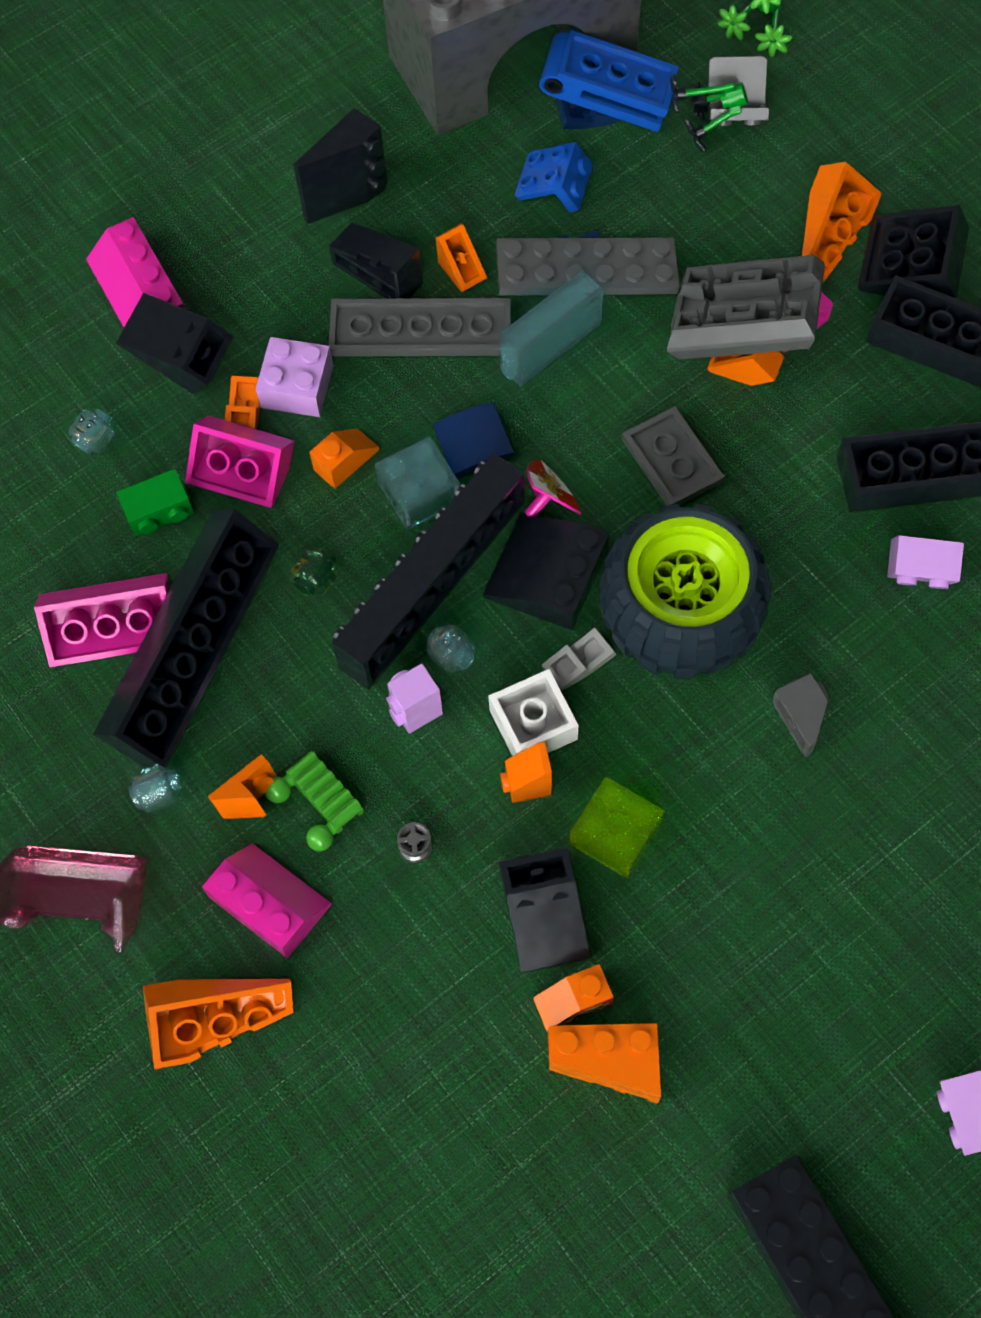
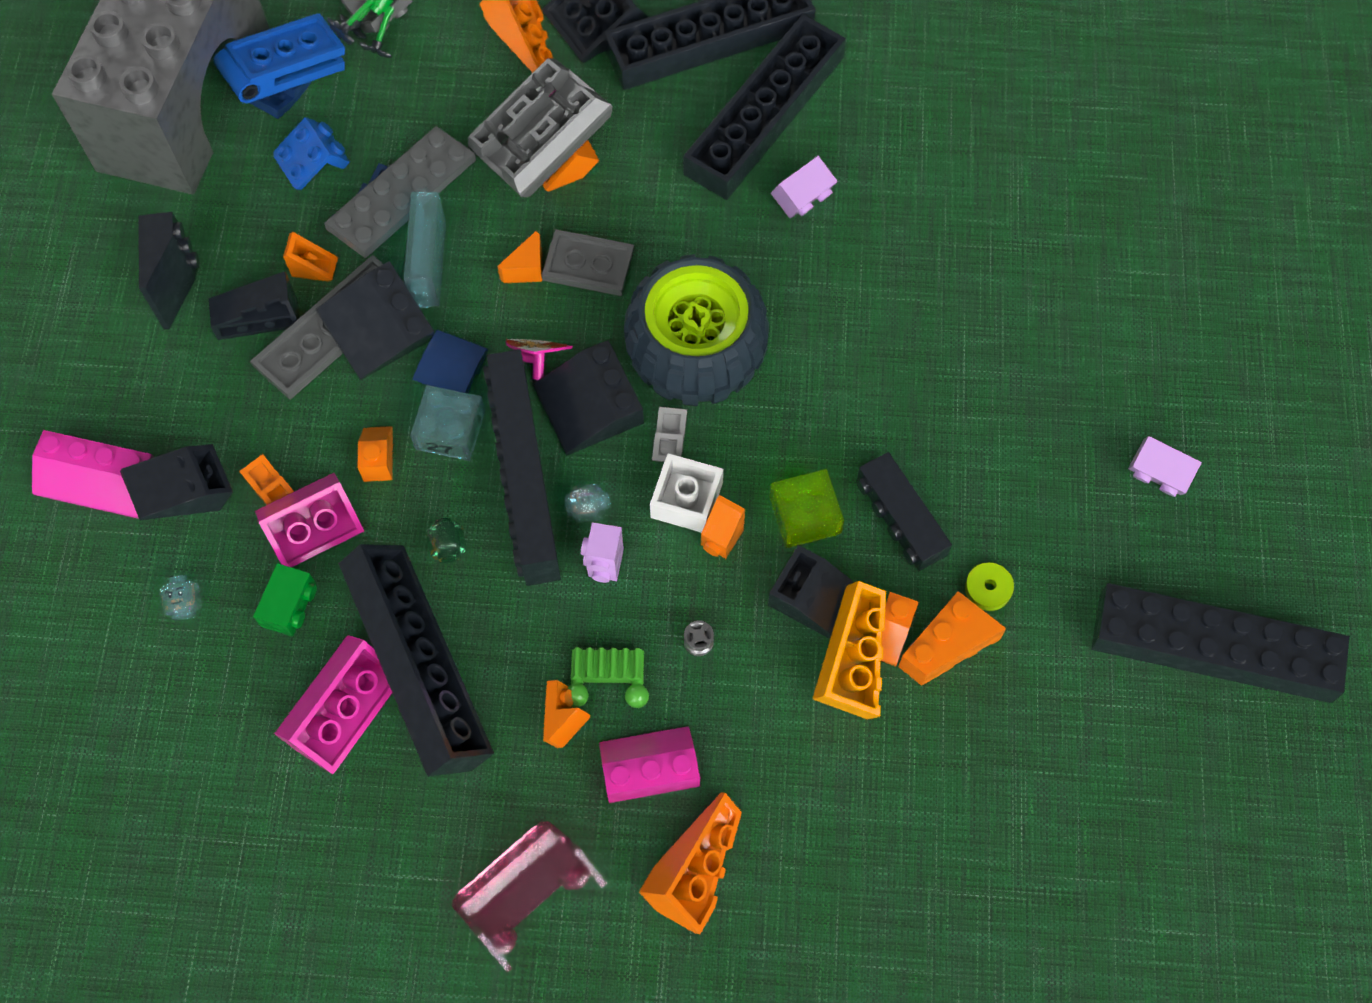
camera: 50 degrees left, 0 degrees up
(154, 788) = (500, 772): clear light blue head -> none
(294, 377) = (285, 432): lavender brick -> none
(451, 351) = (375, 321): none -> black slope
(507, 986) = (854, 654): none -> light orange wedge
(621, 410) = (523, 263): none -> orange slope
(695, 914) = (903, 512): none -> black brick
(701, 1034) = (997, 576): none -> lime piece
(802, 710) = (833, 339): dark grey slope -> none

